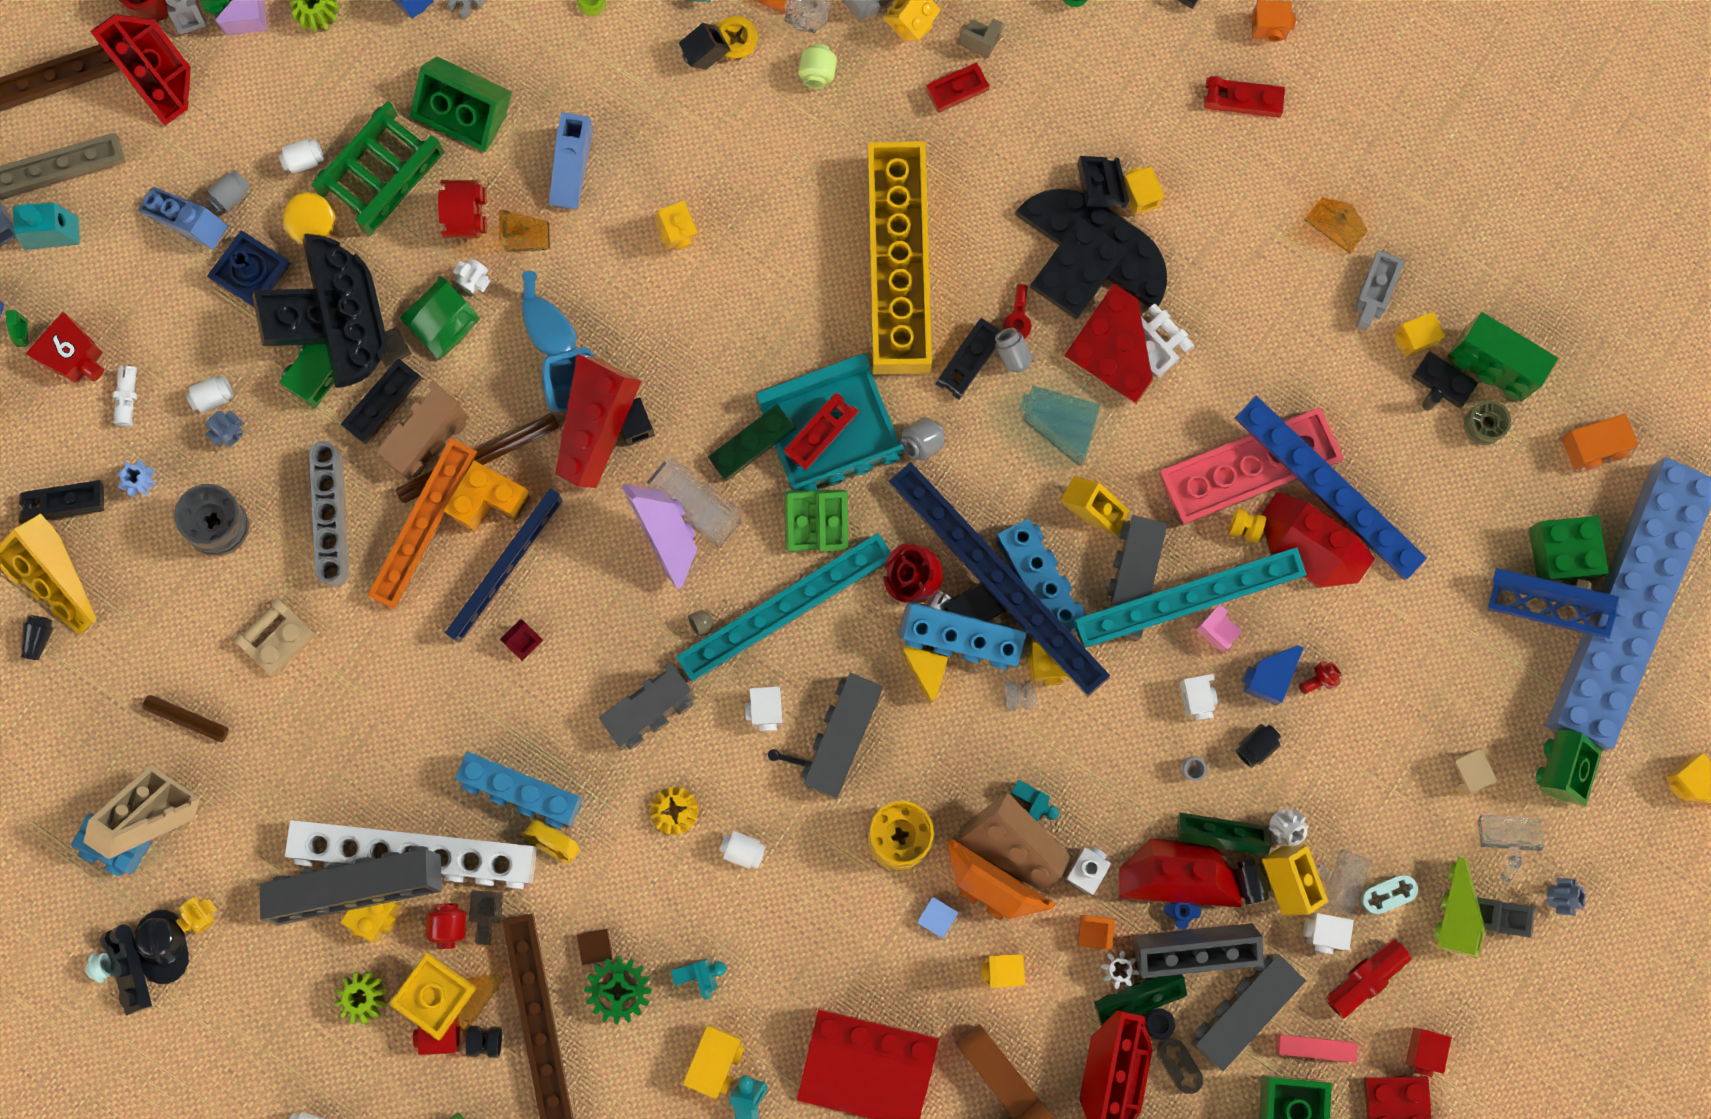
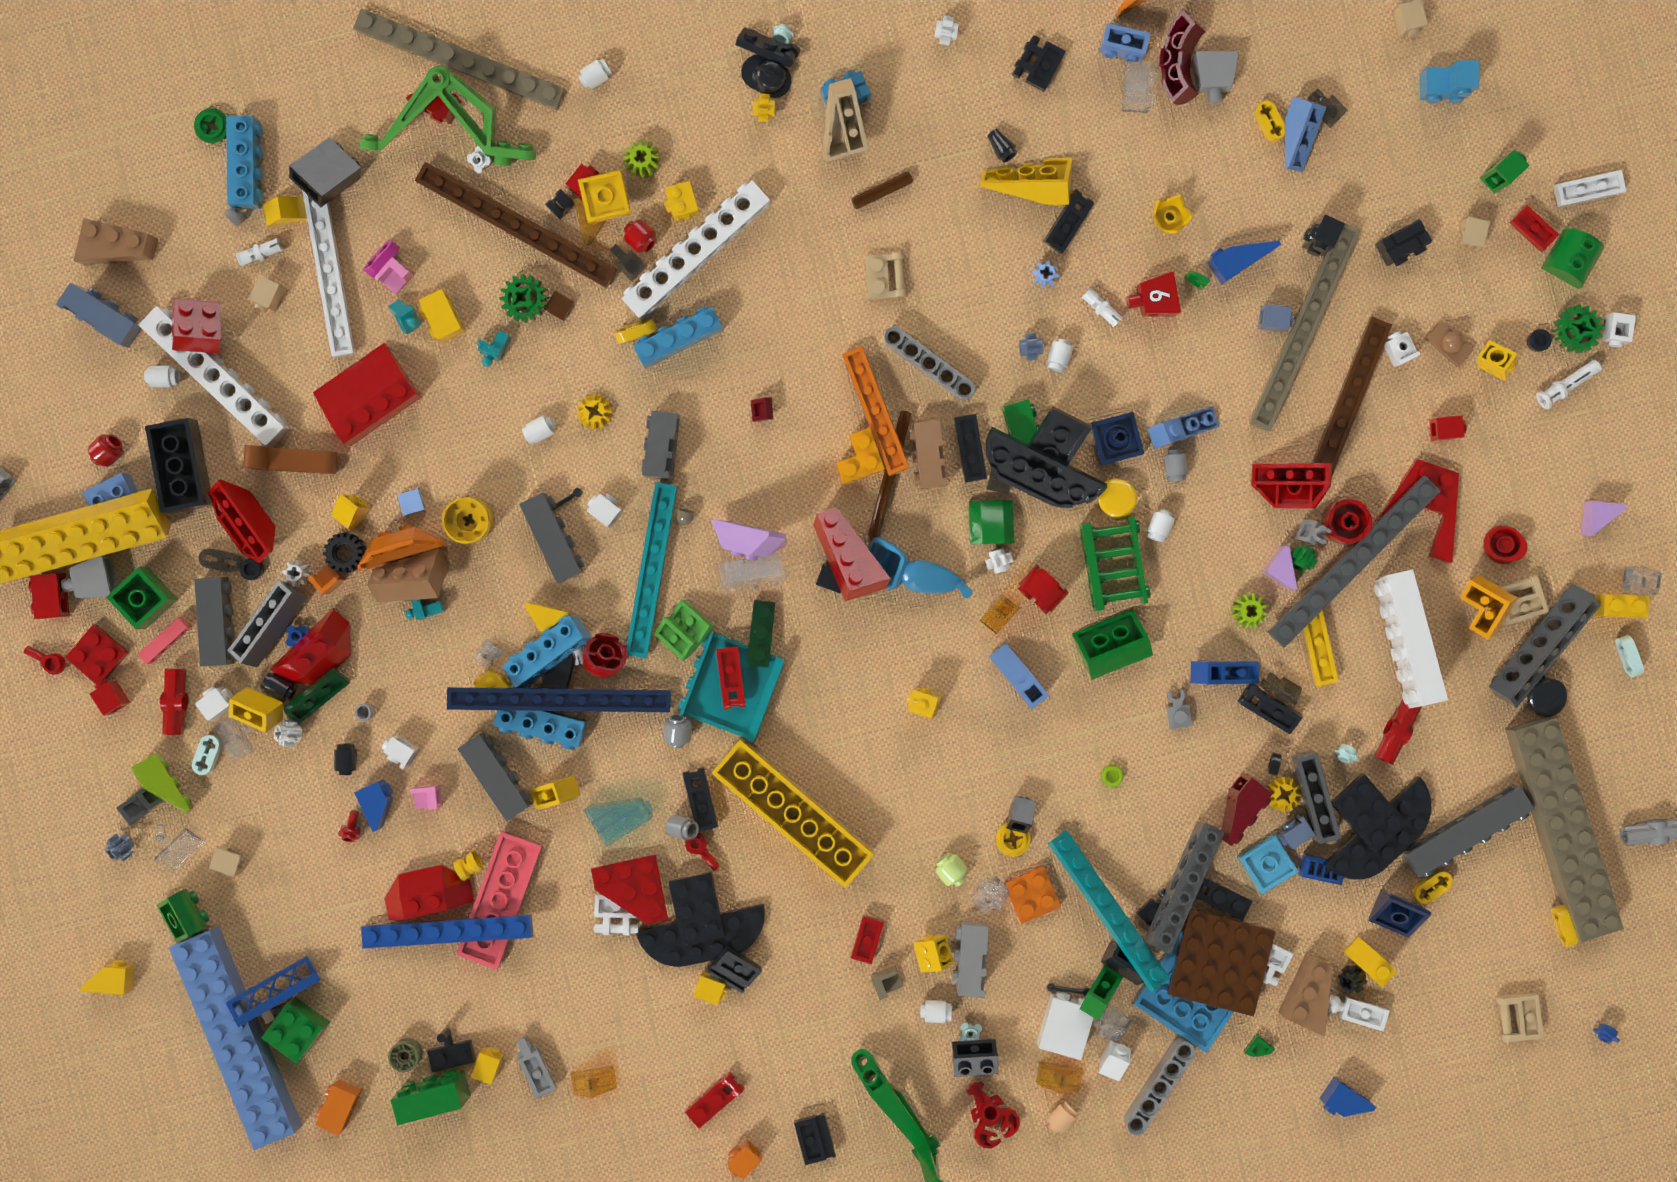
camera: 135 degrees right, 10 degrees up
(39, 226) = (1245, 344): teal torso -> none
(204, 506) = (981, 282): flat silver wheel -> none
(350, 886) = (701, 201): dark grey brick -> none
(504, 566) = (813, 441): dark blue tile -> none
(1070, 936) = (332, 549): none -> black tyre
(1088, 870) = (362, 605): white brick -> none
(1142, 997) = (272, 569): dark green plate -> none
(1189, 597) = (453, 794): teal plate -> none

